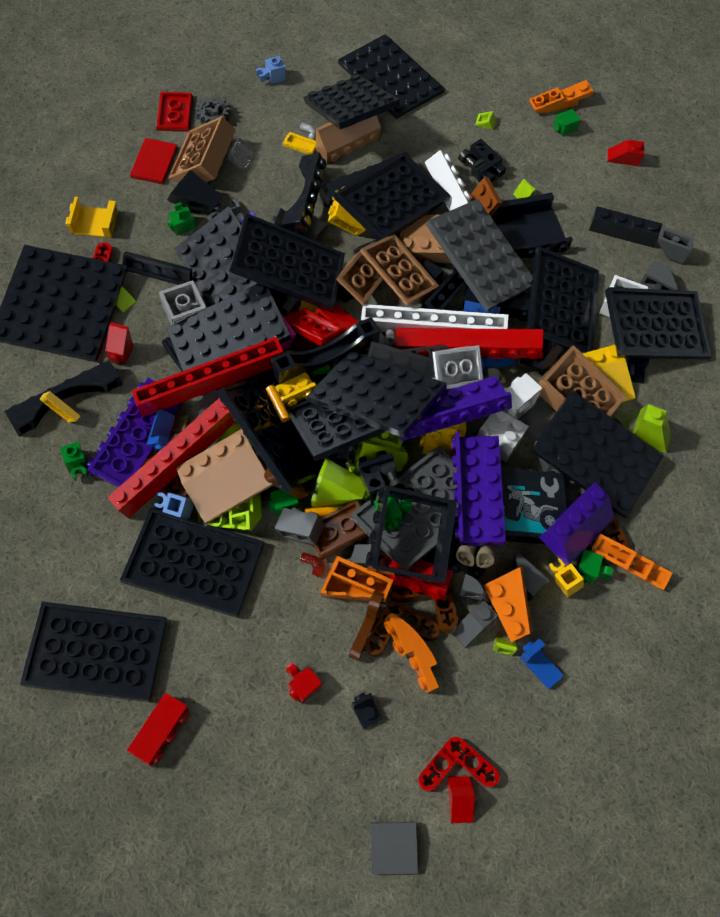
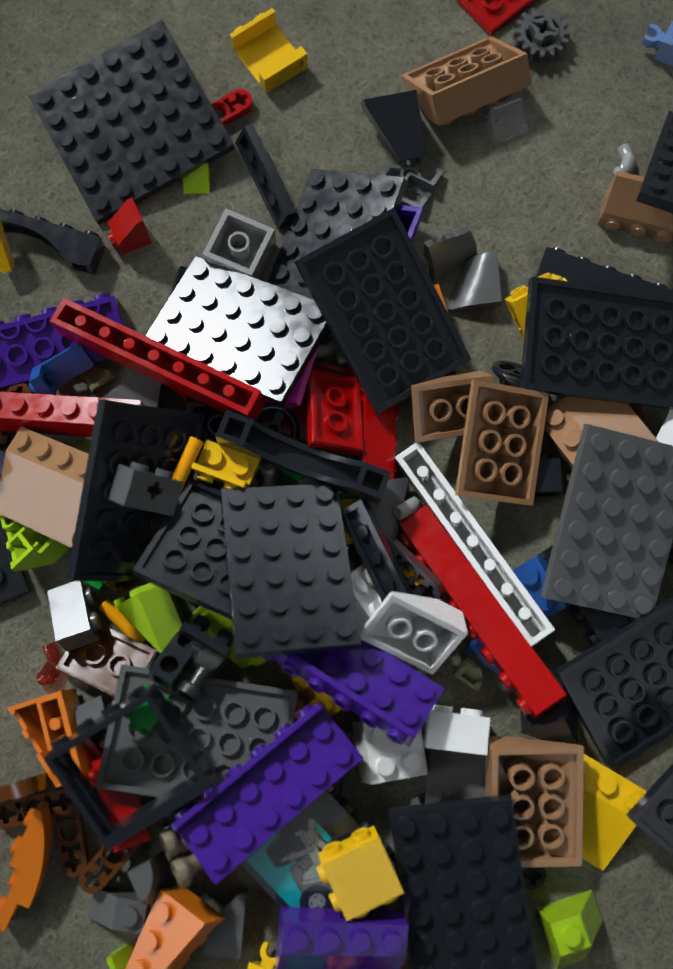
camera: 55 degrees right, 15 degrees up
(153, 161) = (410, 39): red tile -> none
(180, 219) = (353, 141): green brick -> none
(277, 420) = (144, 489): none -> dark grey brick
(300, 143) = (595, 168): yellow tile -> none
(300, 214) = (474, 263): black arch -> none
(445, 292) = (520, 520): black brick -> none
(552, 483) = (358, 874): none -> yellow brick
(637, 369) = (642, 846): black panel -> none

